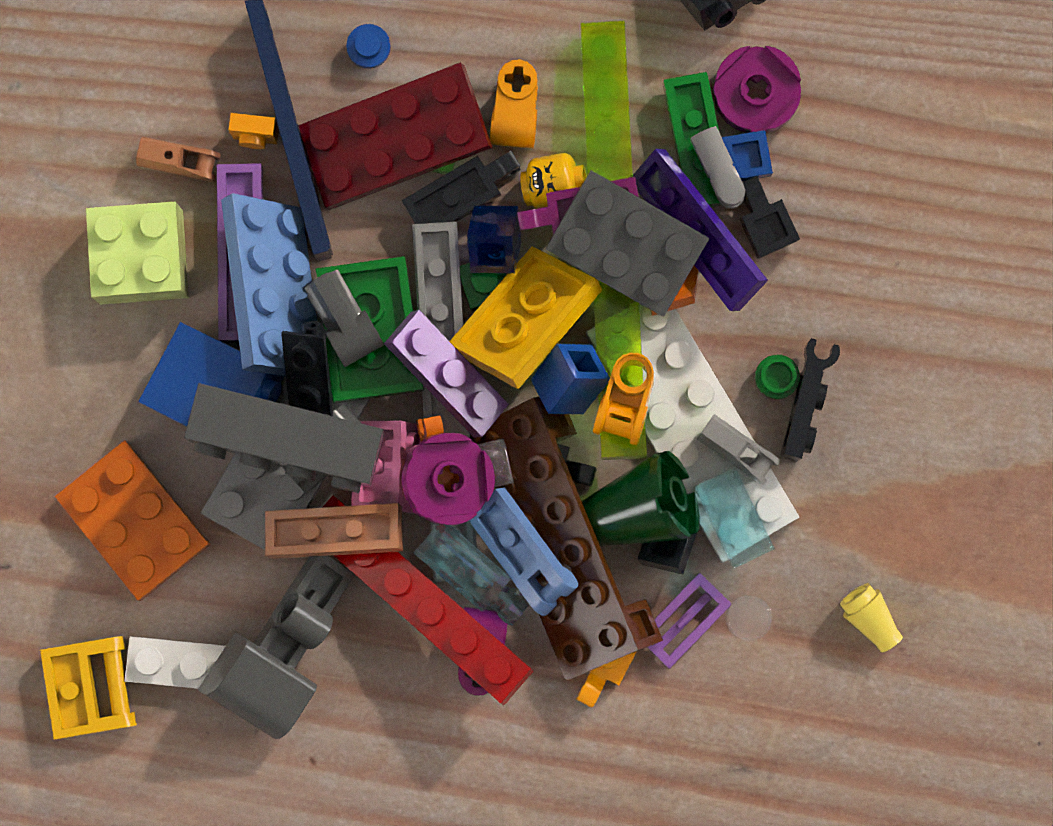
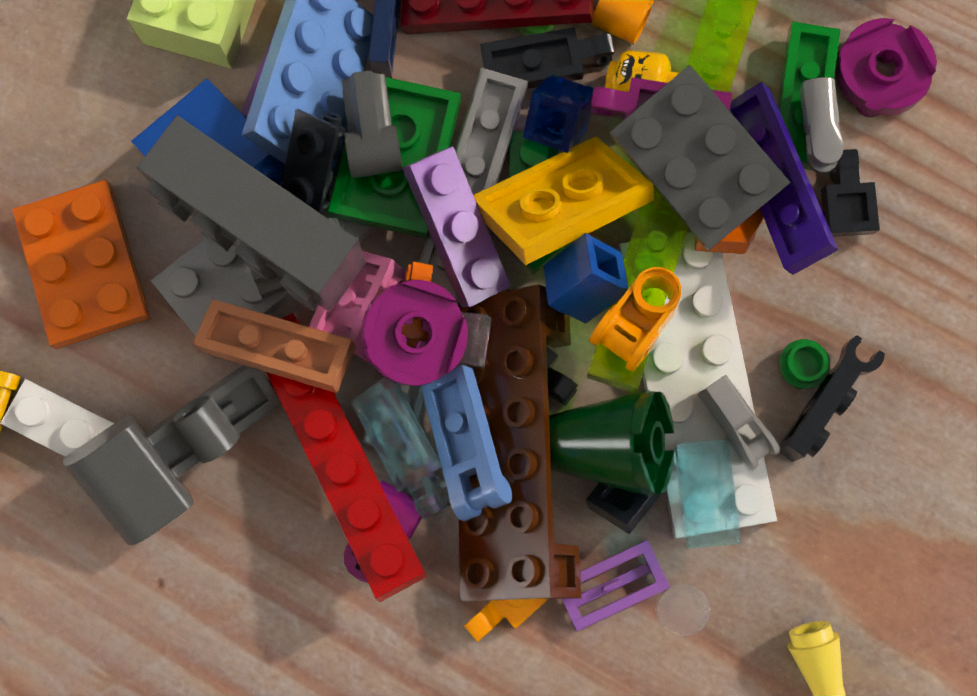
camera: 25 degrees right, 5 degrees down
(749, 154) = (858, 126): blue plate -> none

